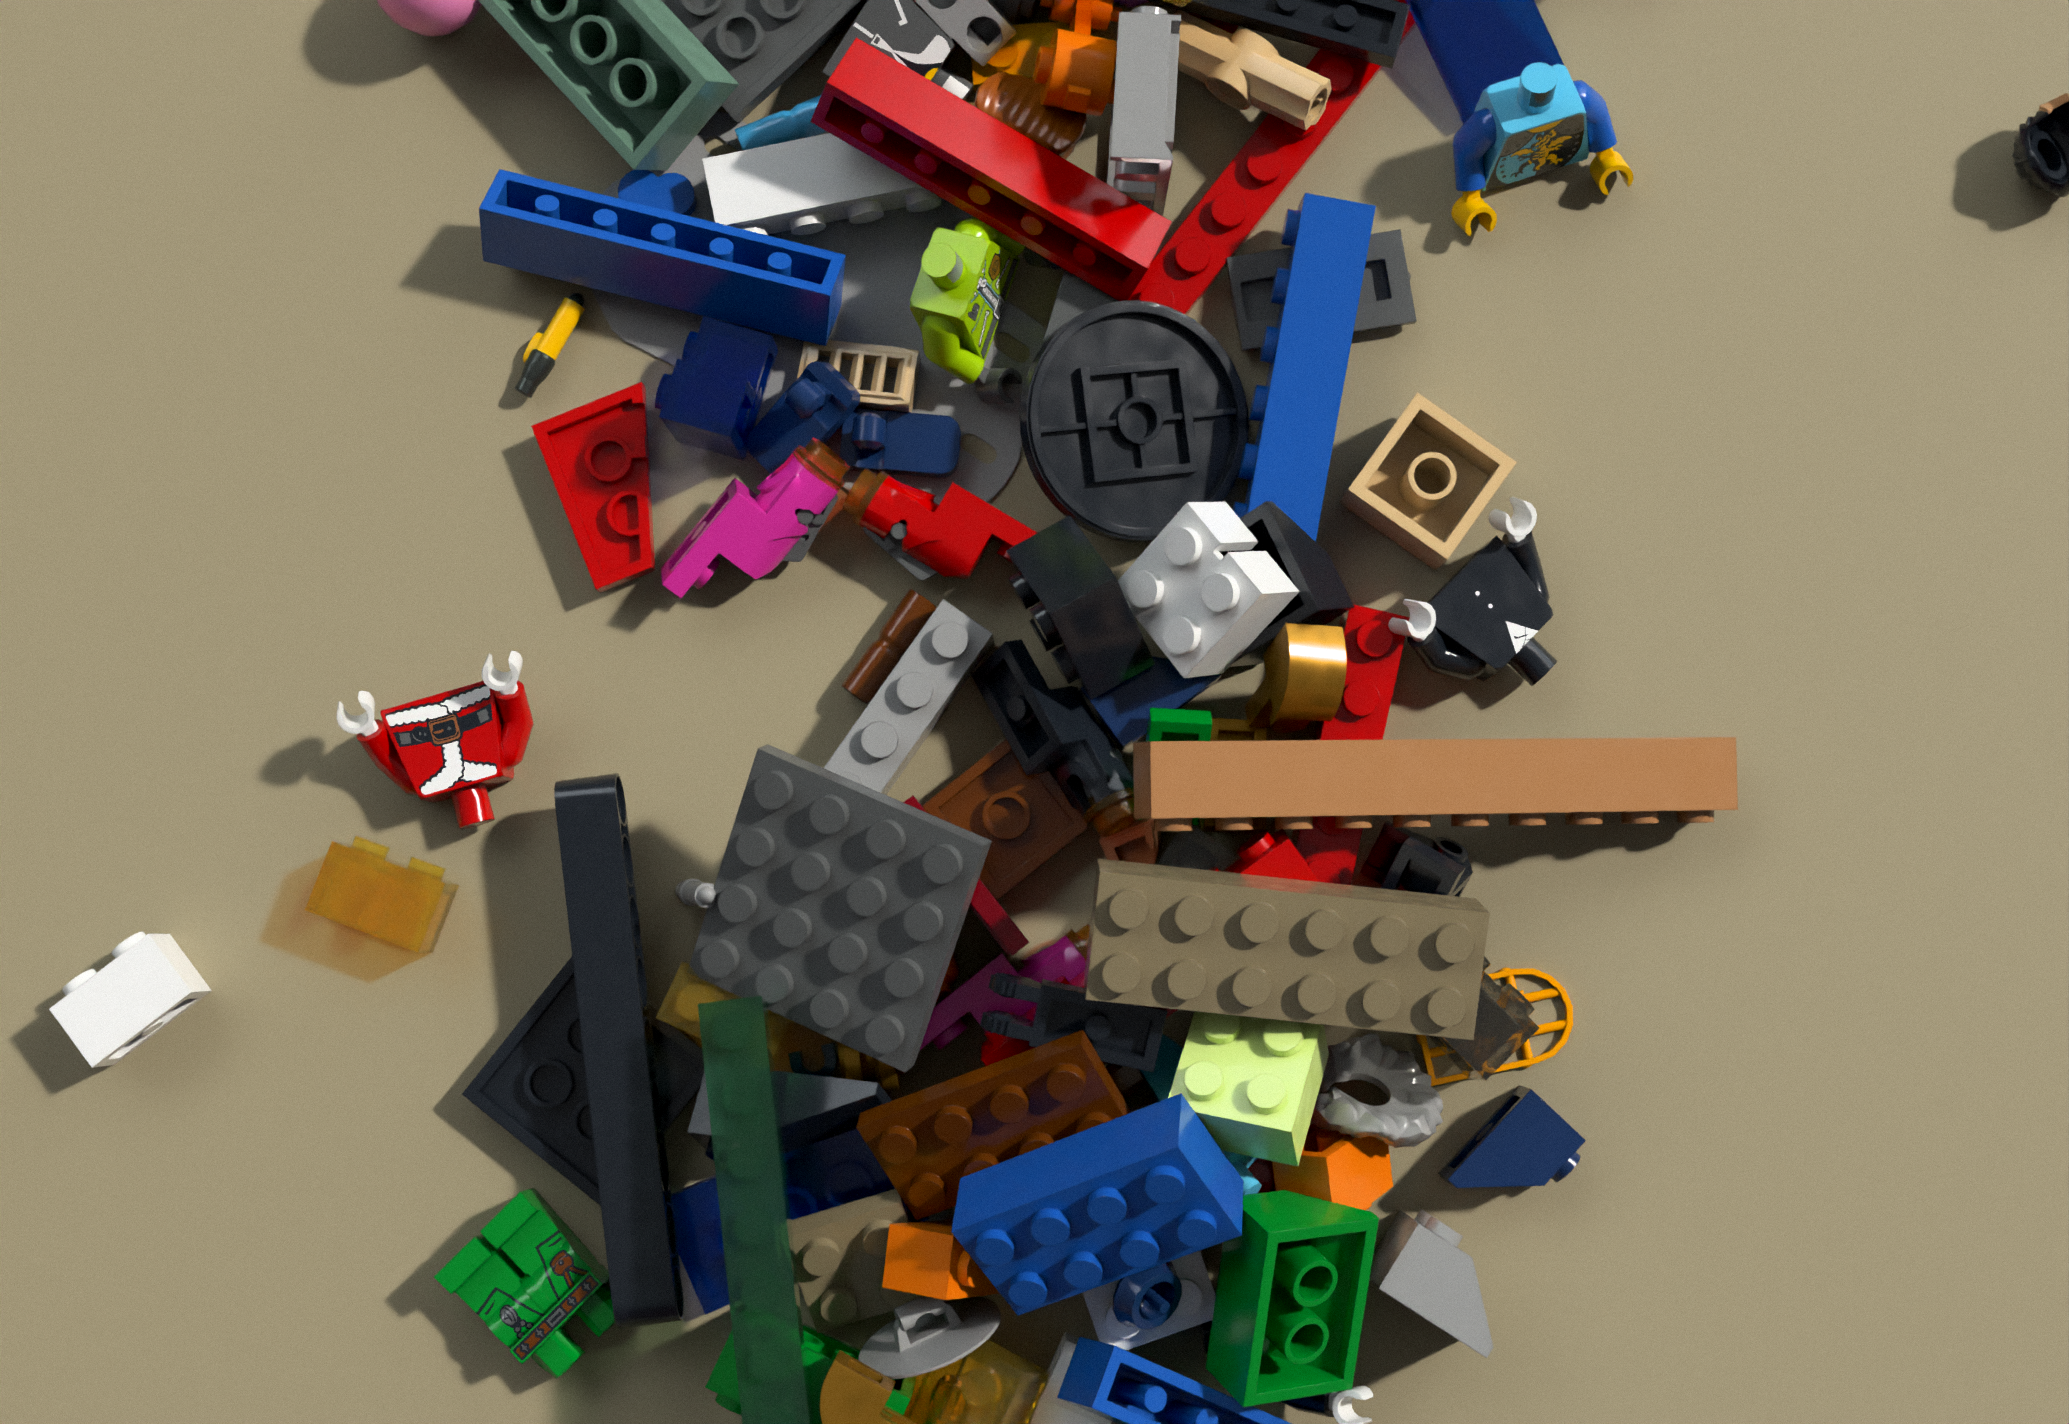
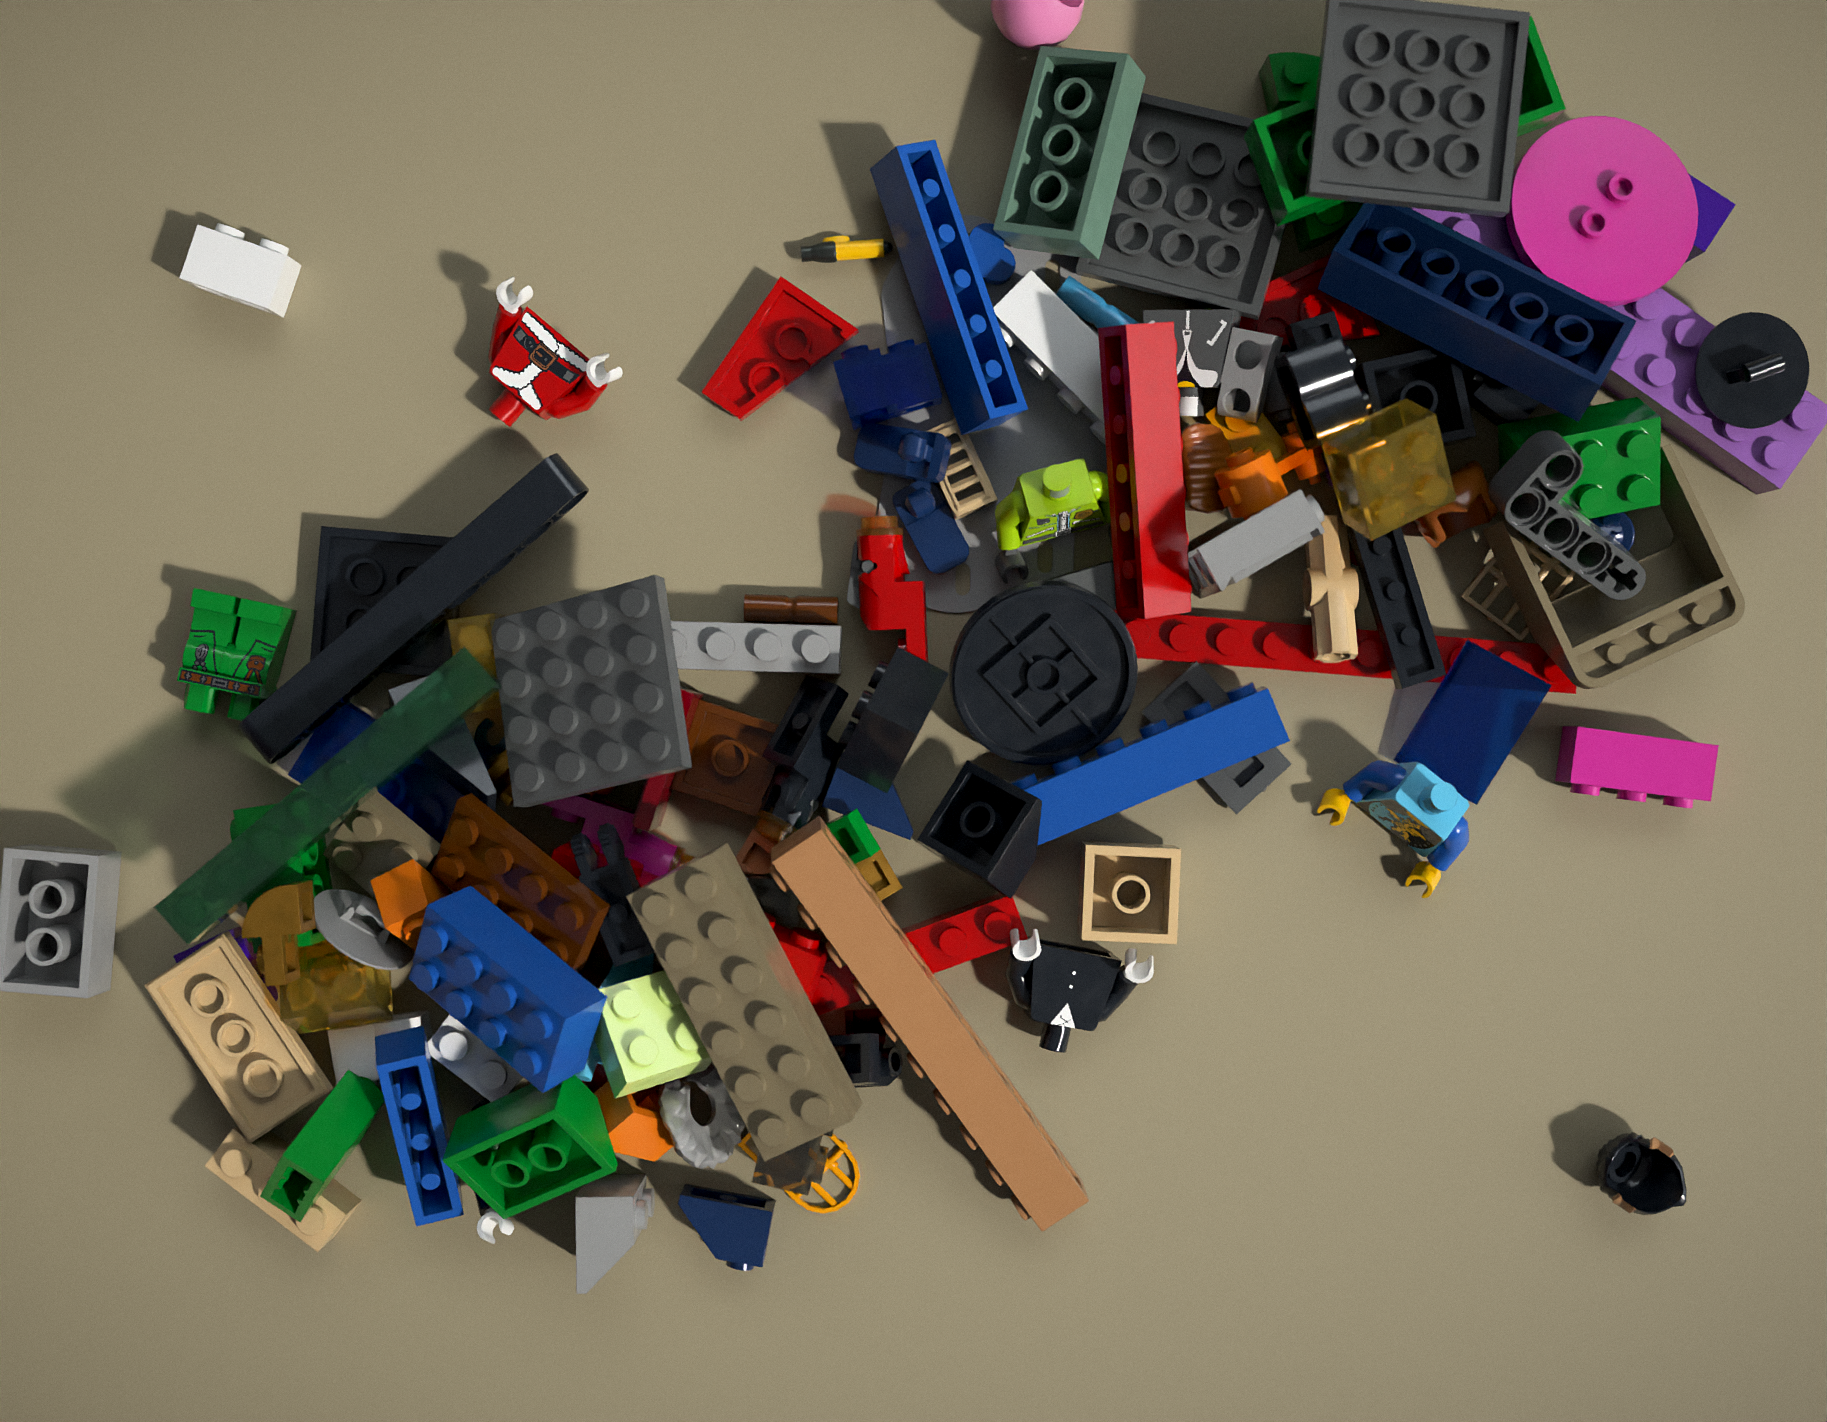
camera: 55 degrees right, 5 degrees up
(383, 895) = (413, 388): clear yellow brick -> none
(696, 893) = (546, 592): light grey piece -> none
(761, 528) = (812, 472): dark pink plate -> none
(1147, 1297) = (471, 1055): dark blue hat -> none
(1197, 601) = (942, 790): white piece -> none
(1302, 679) = (940, 895): pearl gold brick -> none

